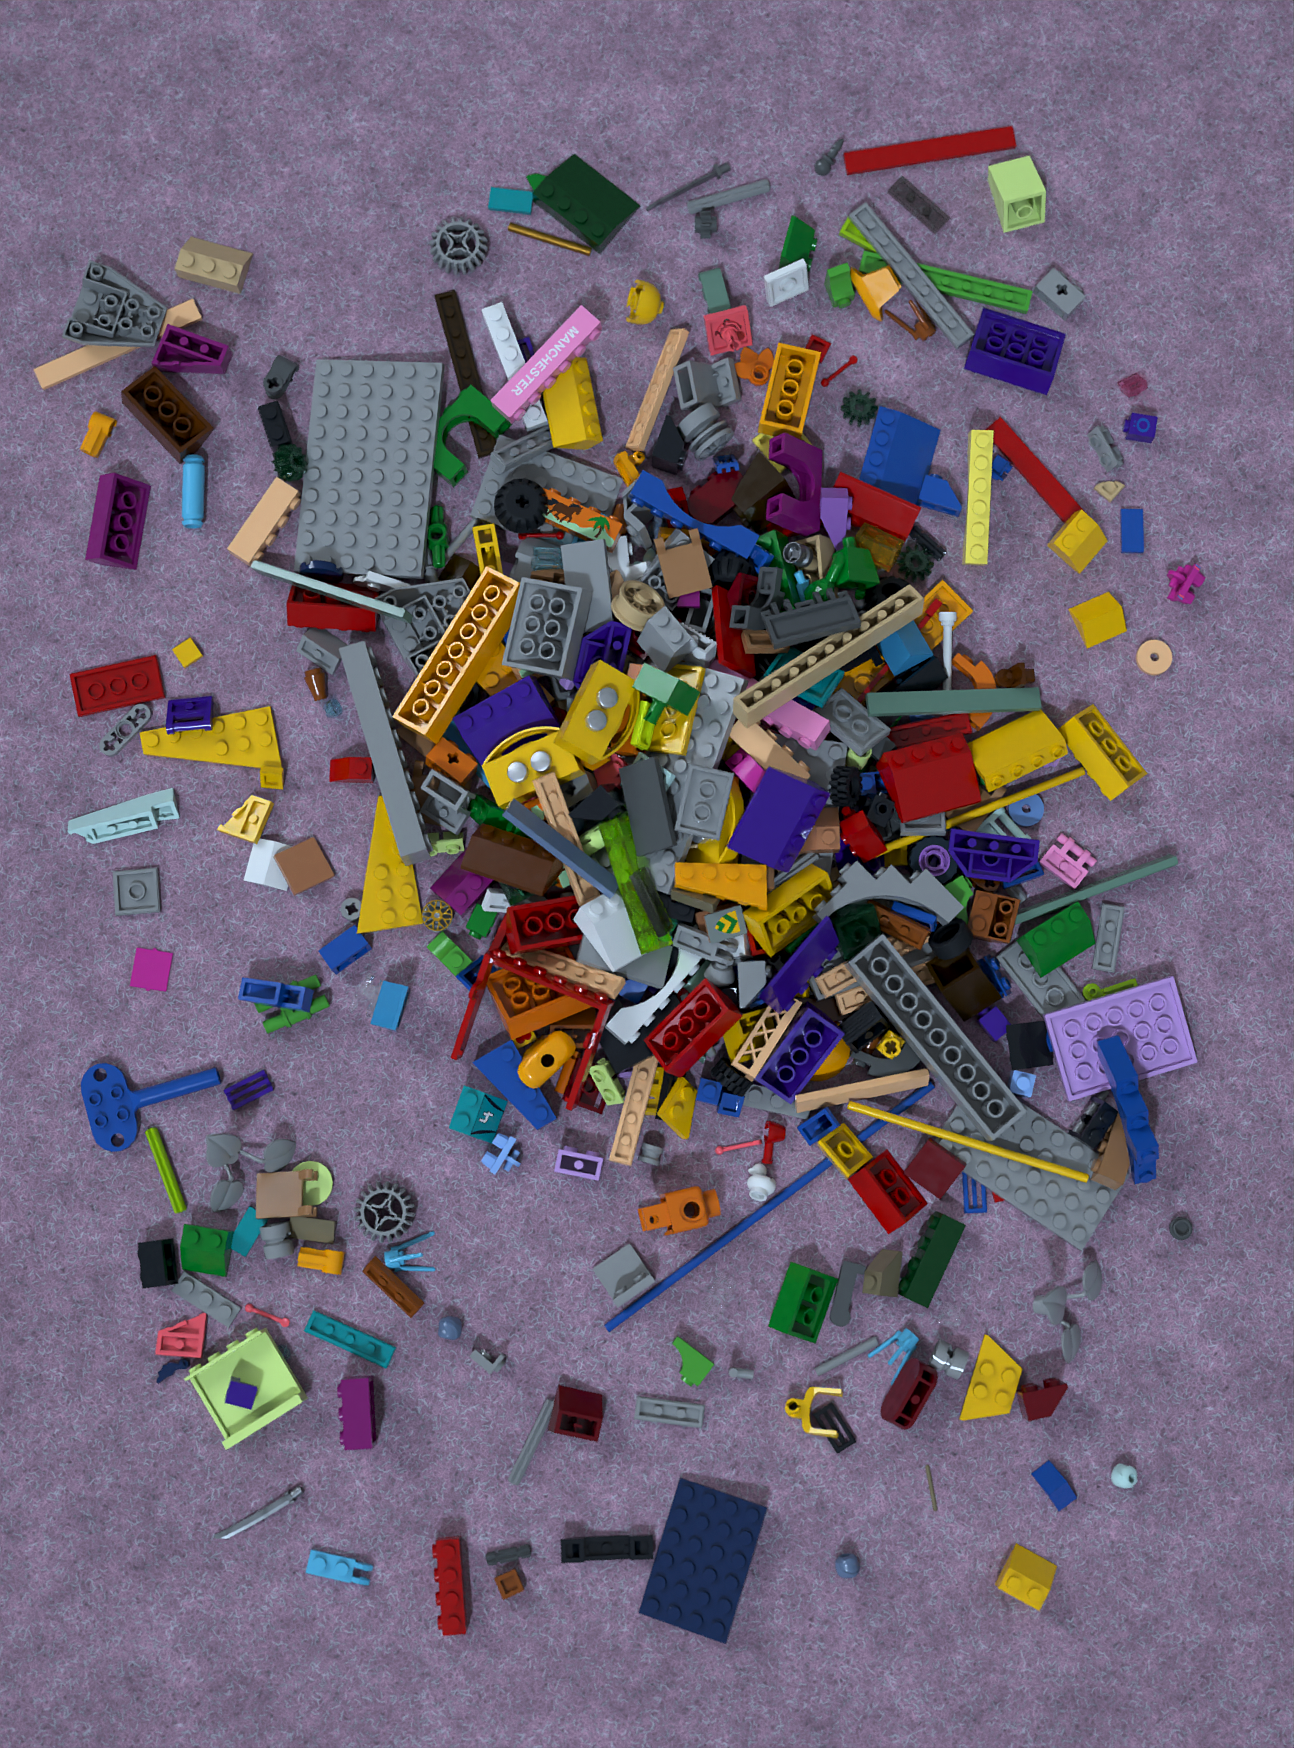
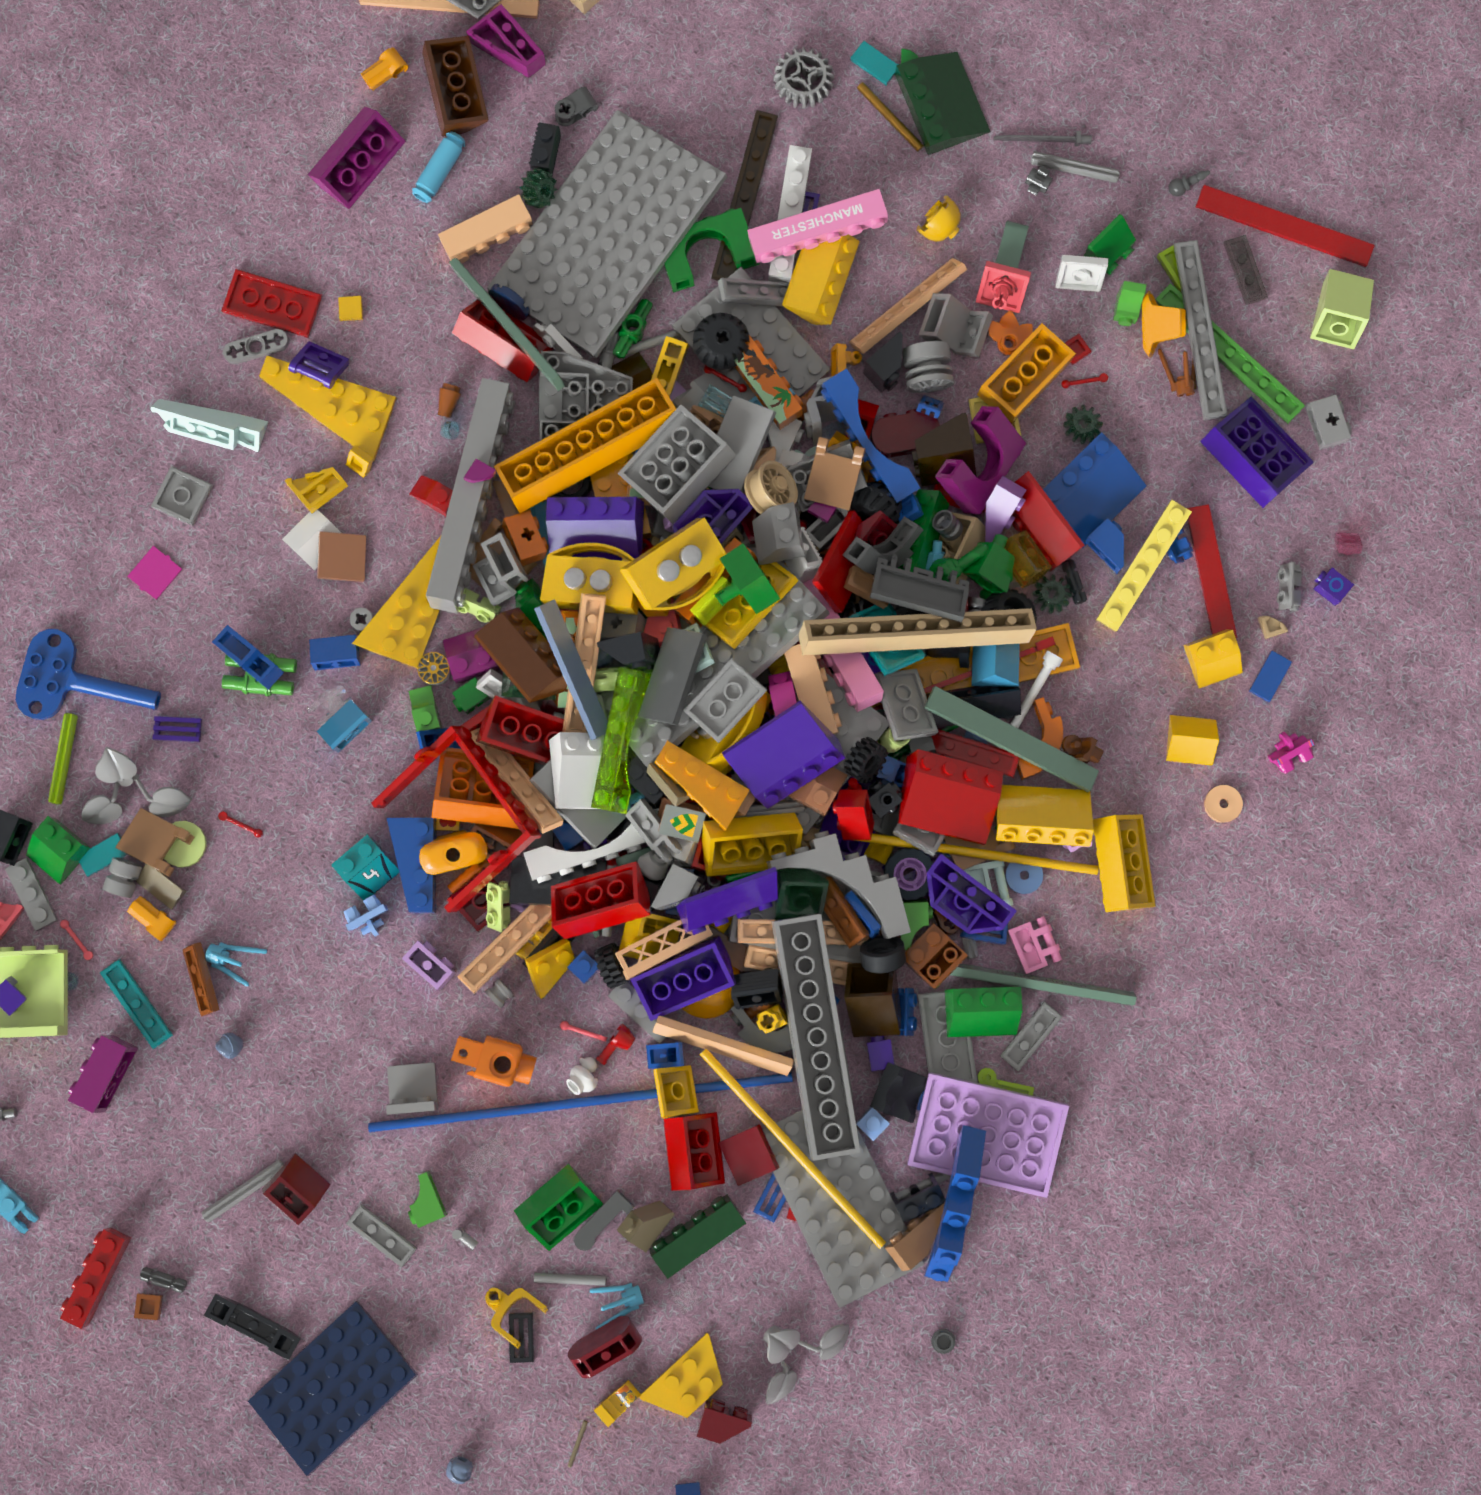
camera: 30 degrees right, 0 degrees up
(321, 649) = (469, 370): light grey panel -> none
(331, 1140) = (224, 816): none -> red hinge
(378, 1224) = (240, 901): light grey gear -> none
(384, 728) = (479, 472): none -> magenta tile
(483, 1359) = (242, 1091): light grey bracket -> none
(651, 901) = (626, 764): clear smoke tile -> none
(730, 1103) = (597, 989): blue plate -> none
(945, 1434) = (617, 1403): none -> yellow leg
(948, 1359) = (659, 1336): light grey wheel -> none

